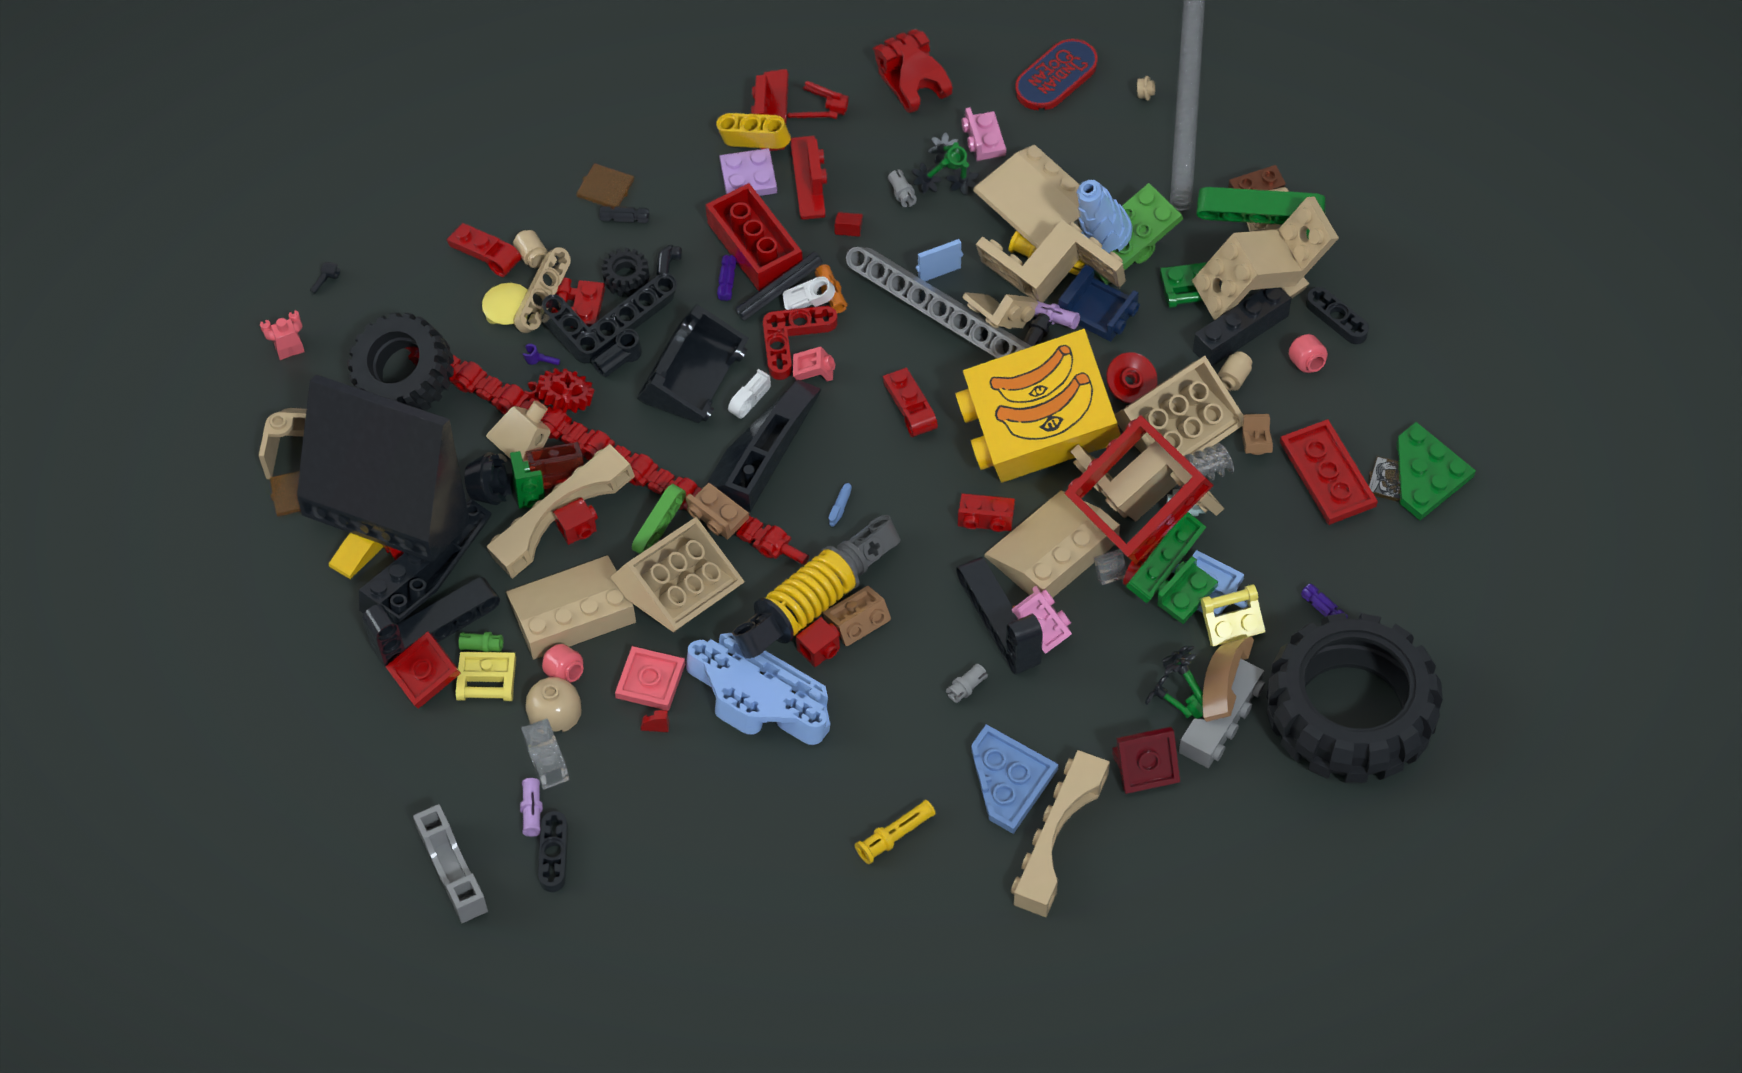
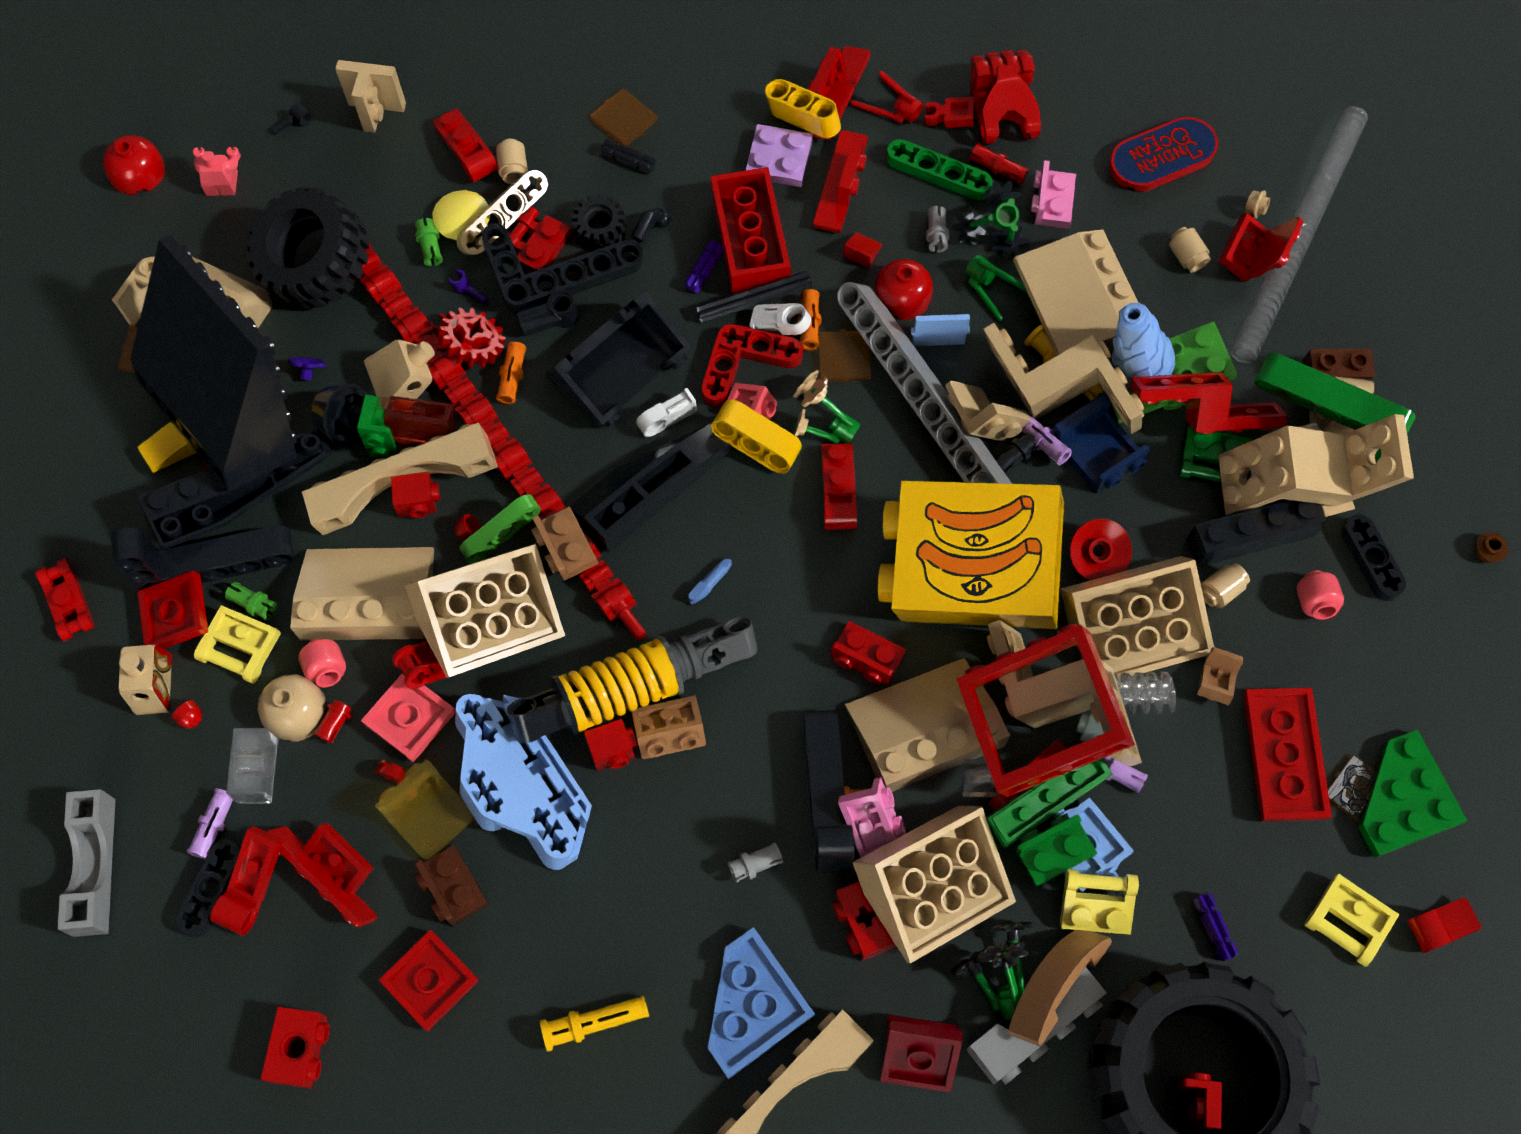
camera: 20 degrees right, 10 degrees up
(207, 355) = (133, 164): none -> red cylinder
(326, 694) = (65, 599): none -> red plate
(387, 229) = (370, 90): none -> tan bracket
(424, 716) = (148, 672): none -> tan torso
(472, 739) = (187, 715): none -> red hinge
(488, 329) = (427, 238): none -> bright green pin
(584, 830) = (249, 882): none -> red plate
(591, 704) = (333, 721): none -> red pin
(605, 395) = (511, 373): none -> orange pin
(628, 531) = (466, 527): none -> red hinge
(641, 797) = (332, 868): none -> red bracket
(645, 634) = (419, 663): none -> red piece
(678, 945) = (288, 1028): none -> red brick
(696, 737) = (425, 810): none -> clear yellow bracket
(741, 782) = (451, 886): none -> copper bracket
(756, 849) = (429, 980): none -> red plate
(830, 385) = (756, 436): none -> yellow beam
(870, 307) = (843, 356): none -> clear orange piece
(876, 95) = (955, 113): none -> red plate
(882, 147) = (936, 174): none -> green beam
(893, 356) = (842, 425): none -> plant
(896, 240) = (904, 288): none -> red cylinder
(929, 123) = (999, 164): none -> red pin
(953, 208) = (984, 272): none -> green plant
(1068, 689) = (862, 939): none -> red brick
(1107, 139) = (1189, 249): none -> tan brick
(1108, 641) = (936, 881): none -> tan slope
(1158, 123) = (1256, 250): none -> red bracket
(1168, 243) = (1208, 402): none -> red bracket
(1216, 527) = (1125, 775): none -> lavender pin
(1358, 709) = (1206, 1105): none -> red bracket
(1419, 284) = (1486, 553): none -> reddish brown plate
(1420, 557) = (1358, 911): none -> light yellow plate
(1487, 546) = (1444, 924): none -> red panel

